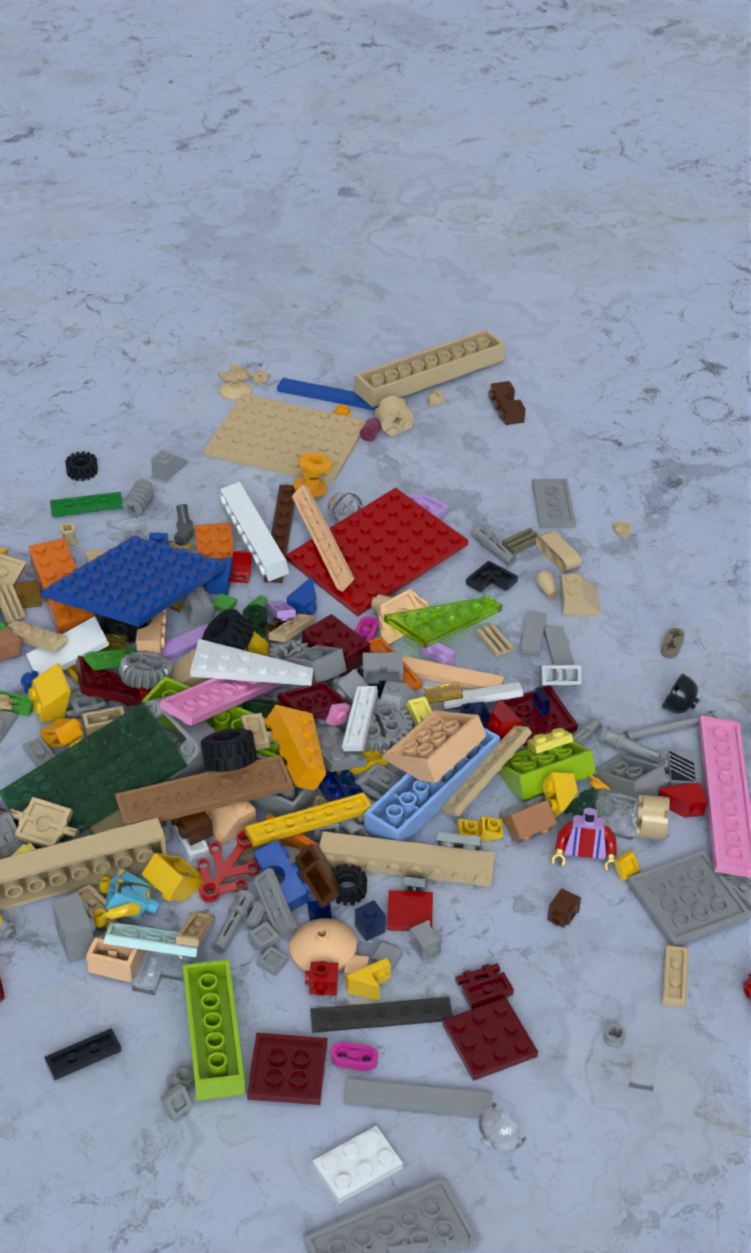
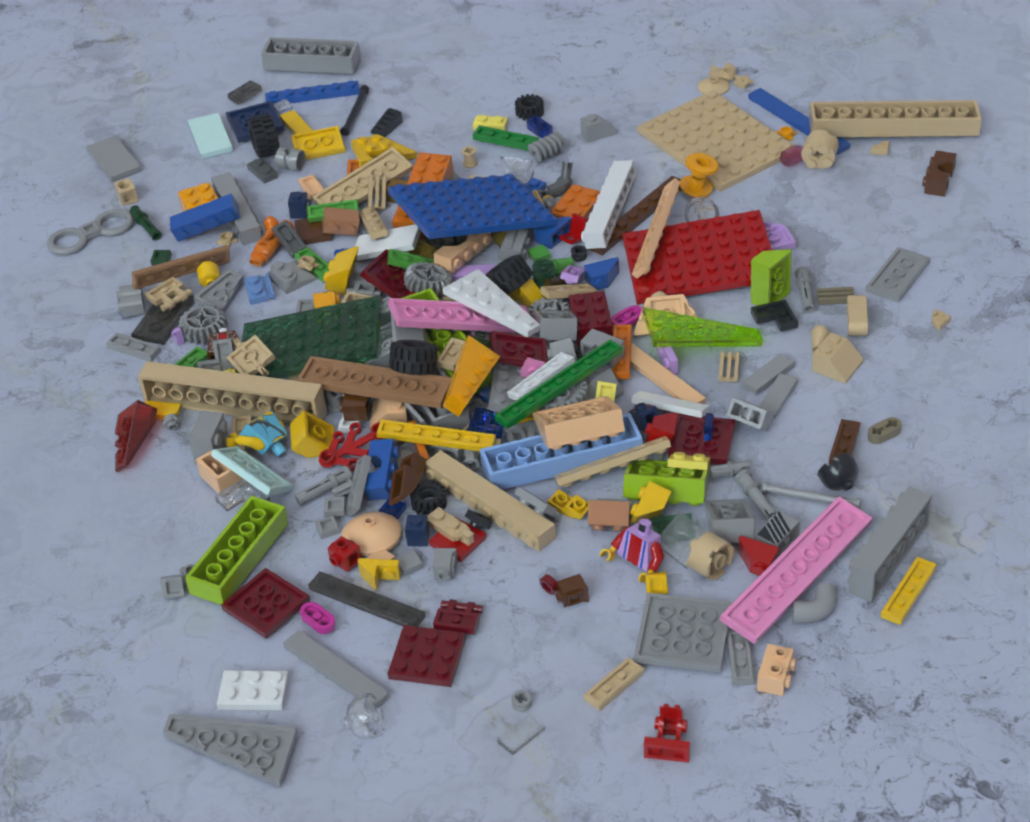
camera: 40 degrees right, 0 degrees up
(57, 492) = (490, 121): none -> light yellow plate
(82, 1054) = (145, 526): black plate -> none
(107, 482) = (539, 126): none -> clear blue plate
(195, 929) = (287, 477): tan tile -> none
(261, 587) = (578, 253): none -> black bush
(264, 808) = (415, 416): none -> light grey piece
(383, 719) = (558, 384): none -> green tile
(399, 901) = (450, 526): none -> tan hinge
(443, 692) = (641, 389): clear yellow piece -> none
(468, 545) = (770, 276): none -> lime slope
(537, 912) = (549, 584): none -> dark red tile
(596, 783) = (697, 513): light orange plate -> none
(654, 667) = (845, 438): none -> reddish brown plate

